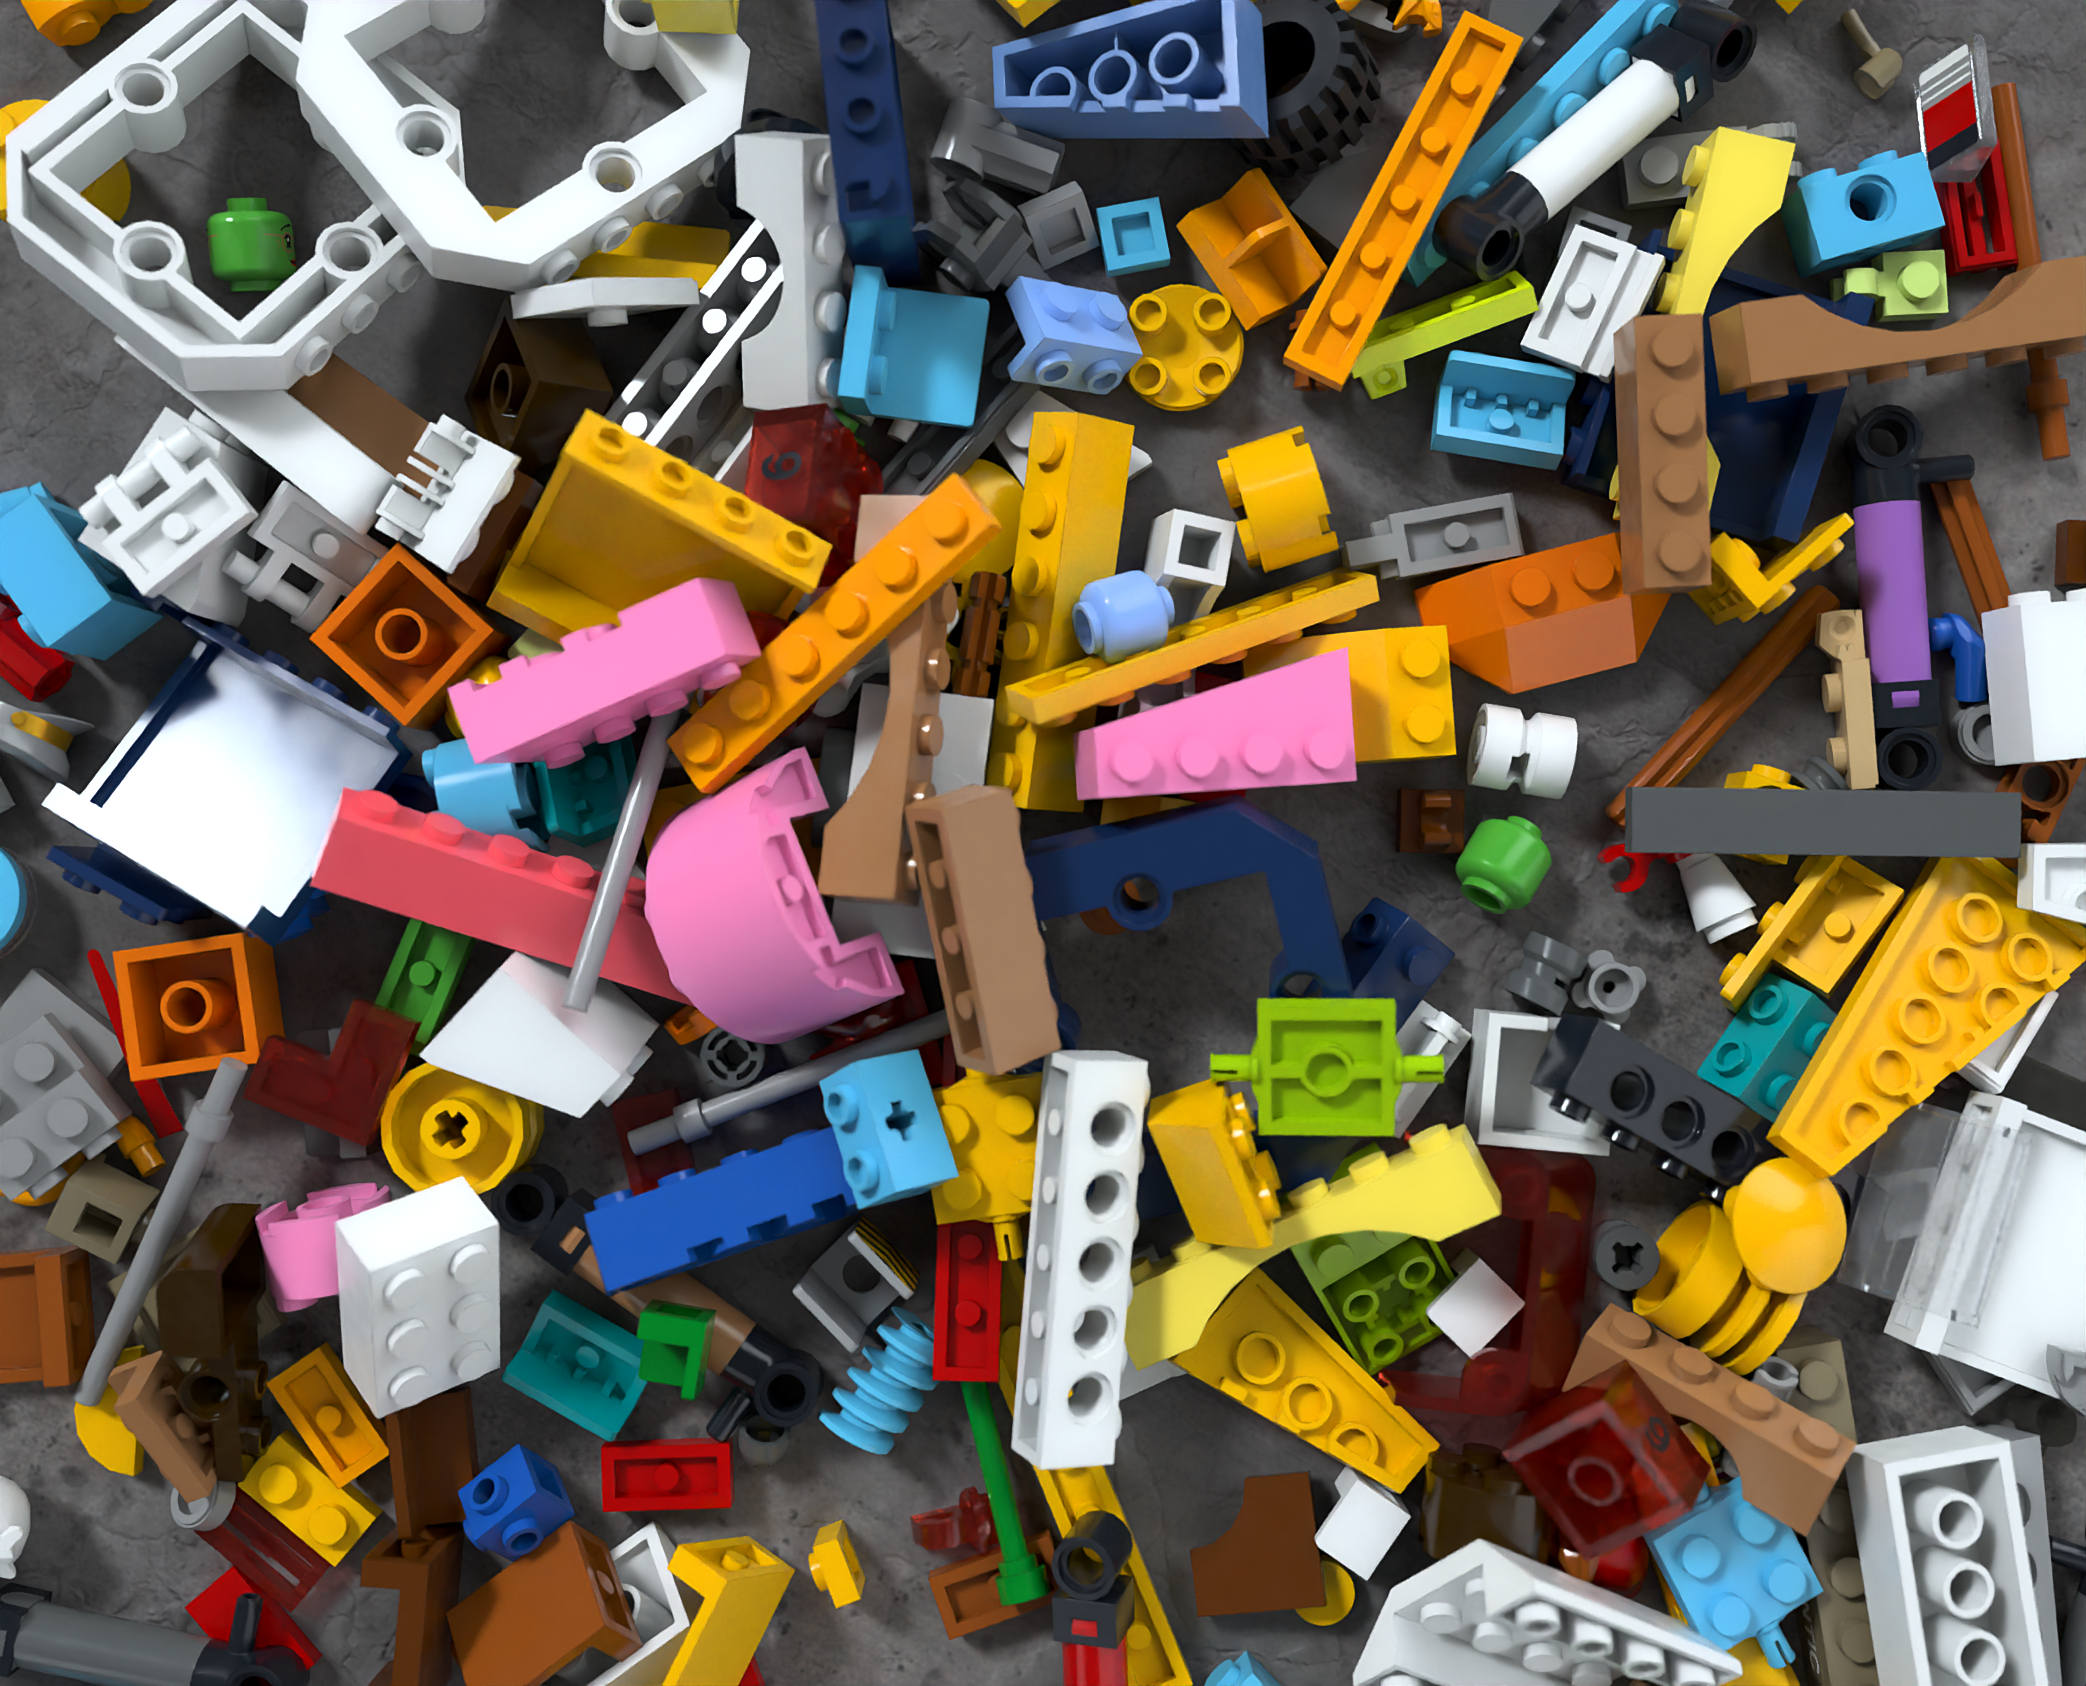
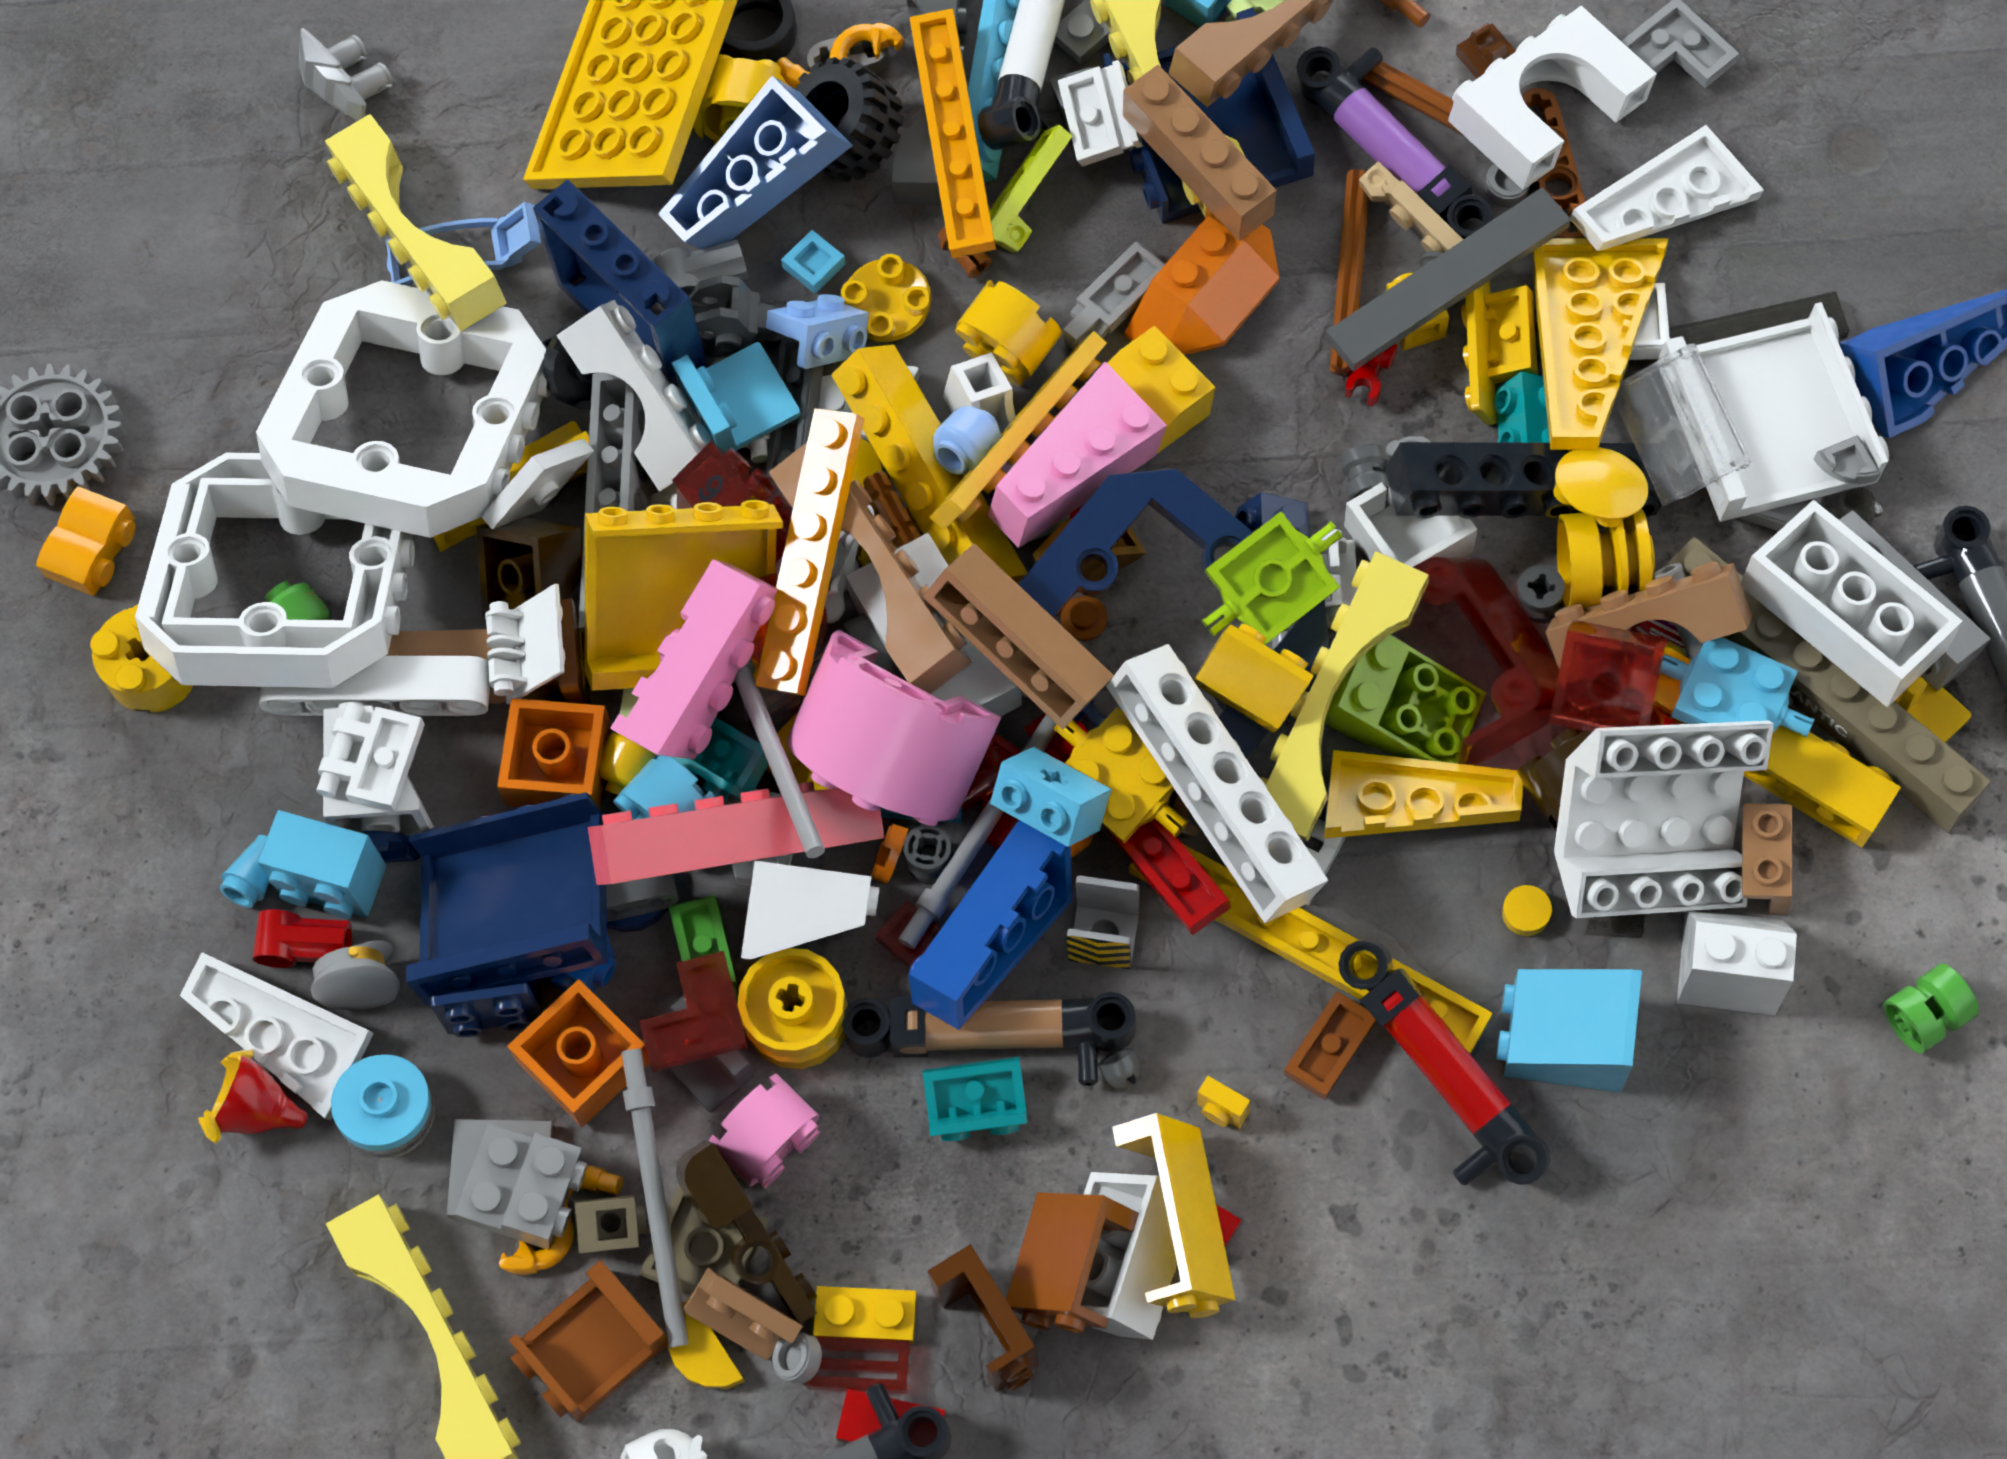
camera: 30 degrees left, 20 degrees down
(149, 1090) = (590, 1147): red sticker -> none
(314, 540) = (460, 743): white plate -> none
(331, 1415) = (842, 1248): light orange plate -> none
(419, 1295) = (845, 1099): white brick -> none
(431, 1459) = (924, 1222): reddish brown panel -> none
(515, 1504) = (996, 1208): blue brick -> none
(667, 1474) = (1077, 1130): red plate -> none
(676, 1345) = (1021, 1025): green panel -> none
(887, 1388) = (1166, 973): medium azure piece -> none
(957, 1524) = (1286, 1021): clear red piece -> none
(1020, 1574) = (1335, 1016): green piece -> none
(1059, 225) = (769, 279): light grey plate -> none
(1253, 250) = (889, 218): light orange panel -> none
(1266, 1555) = (1475, 909): reddish brown tile -> none
(1361, 1523) = (1513, 844): white panel -> none
(1430, 821) = (1234, 445): reddish brown tile -> none
(1473, 1304) = (1474, 674): white panel -> none
(1501, 409) = (1094, 203): medium azure bracket -> none
(1503, 864) = (1294, 434): bright green head -> none
(1522, 751) = (1267, 359): white wheel -> none
(1715, 897) = (1430, 368): white cone -> none
(1744, 591) = (1303, 194): yellow bracket -> none
(1966, 649) = (1457, 146): blue arm -> none

